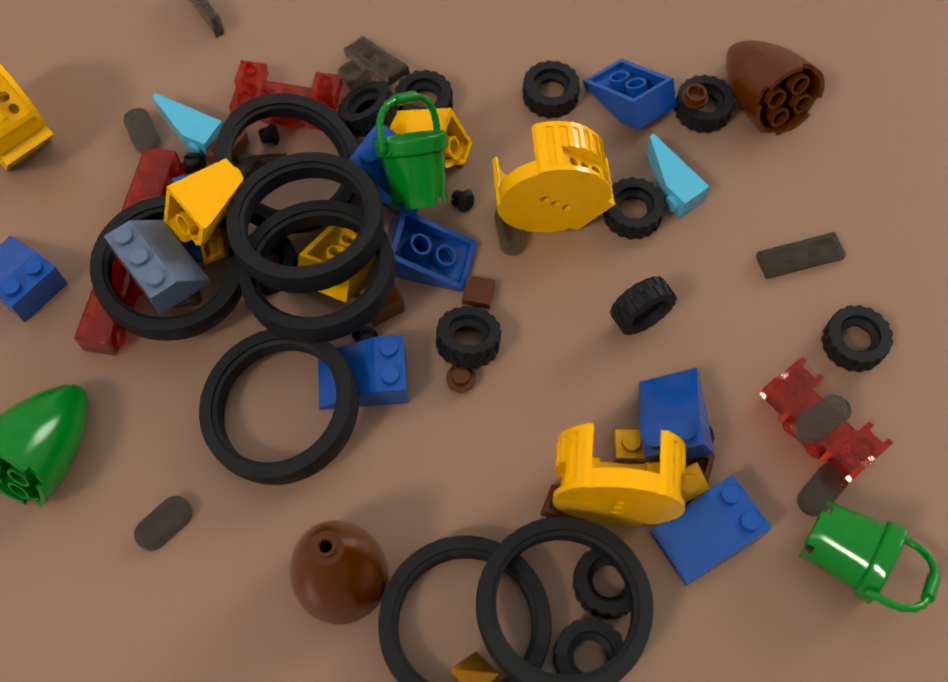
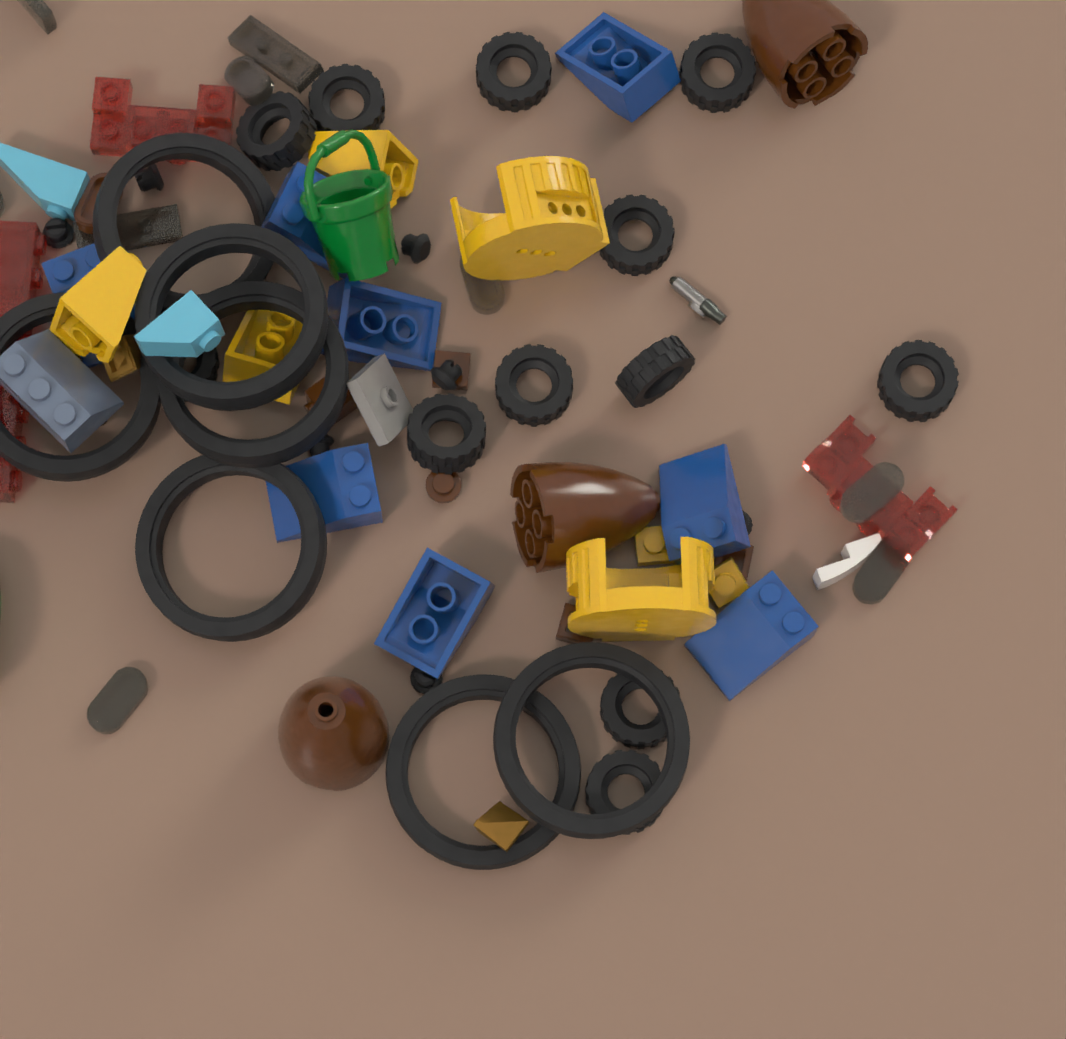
camera: 10 degrees left, 10 degrees up
(259, 220) = (181, 330): none -> medium azure slope
(417, 302) = (380, 399): none -> light grey plate
(425, 533) = (422, 681): none -> black piece
(439, 479) = (434, 613): none -> blue slope
(474, 292) = (446, 375): none -> black piece
(546, 288) = (534, 358): none -> black tyre
(563, 397) = (574, 504): none -> reddish brown cylinder
(677, 181) = (688, 195): medium azure slope -> none
(678, 261) = (697, 301): none -> piece
(694, 96) = (702, 71): reddish brown plate -> none
(798, 474) = (853, 556): none -> white slope
(800, 255) = (848, 276): clear smoke tile -> none
(864, 553) = (917, 642): green piece -> none

